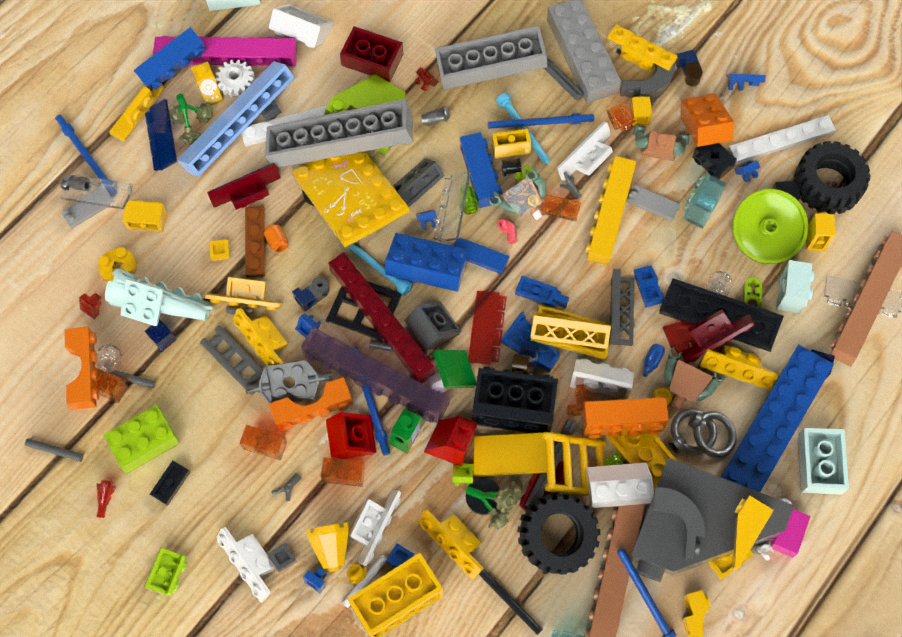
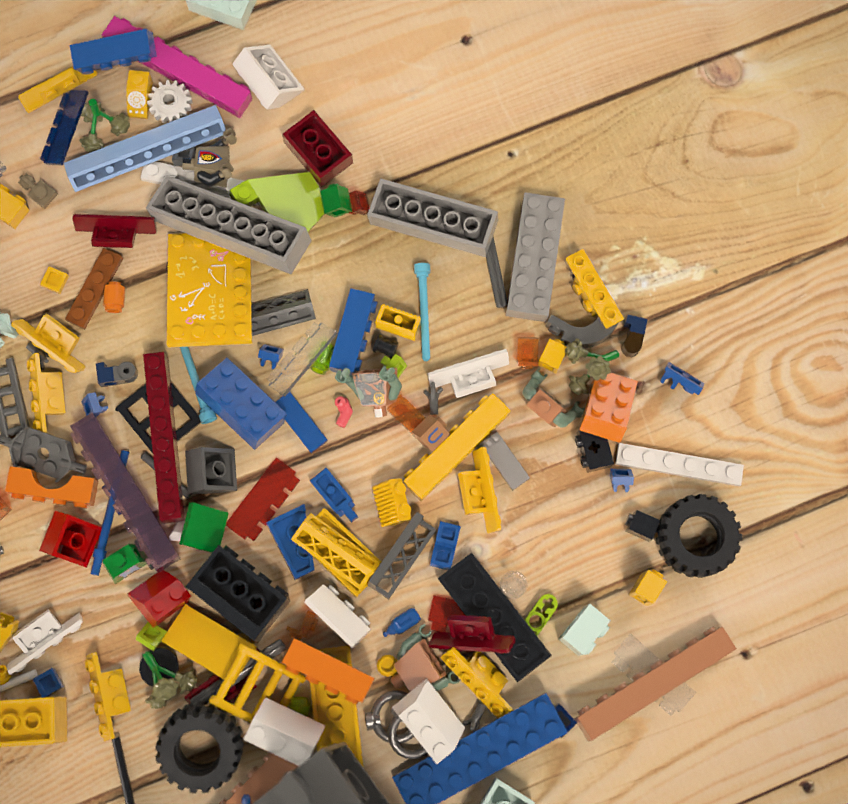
camera: 25 degrees right, 10 degrees up
(168, 194) = (40, 193): none -> dark tan plate
(298, 102) = (212, 162): none -> dark tan torso
(343, 472) = (42, 571): clear orange brick -> none
(408, 83) = (336, 200): none -> green brick
(436, 116) = (344, 250): flat silver arm -> none
(525, 360) = (272, 559): dark brown leg -> none
(574, 119) = (481, 328): blue bar -> none
(587, 207) = (431, 432): none -> medium nougat brick
(589, 273) = (391, 502): none -> yellow brick
(650, 231) = (479, 492): none -> yellow bracket
(682, 94) = (597, 368): none -> olive plant
(703, 200) = (551, 490): clear light blue brick -> none
(724, 415) = (430, 720): none -> white slope
(754, 399) = (476, 717): none -> dark grey bar
(770, 226) = (601, 553): lime dish -> none

